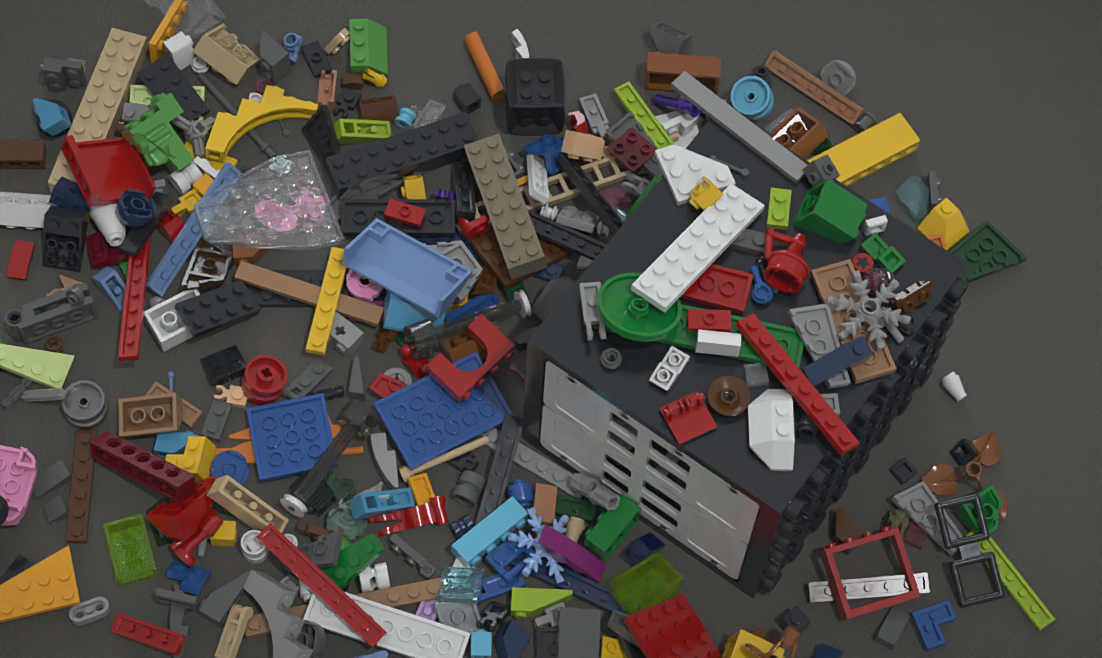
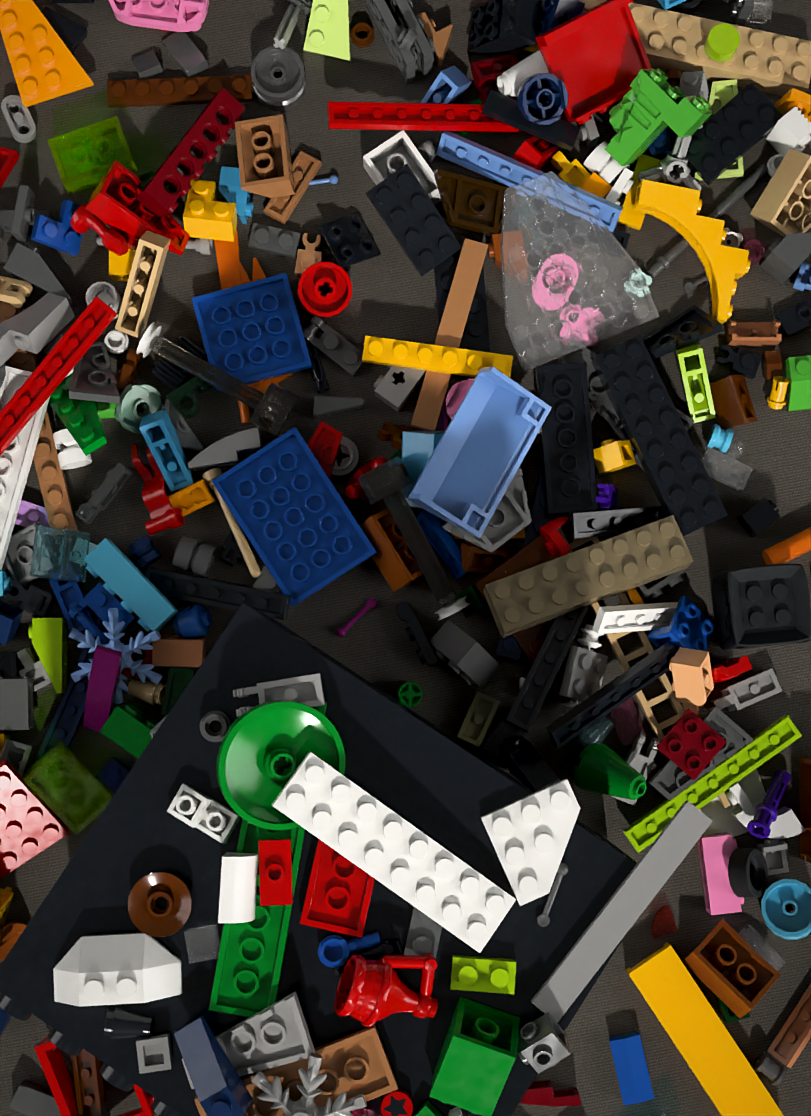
camera: 90 degrees right, 20 degrees up
(106, 86) = (722, 42): none -> lime piece
(230, 464) = (205, 261): blue tile -> none
(404, 213) = (569, 445): red plate -> none
(461, 383) = (324, 533): red arch -> none
(688, 417) = (127, 843): red hinge -> none
(704, 194) = (489, 860): yellow brick -> none
(797, 384) = (176, 1008): red plate -> none

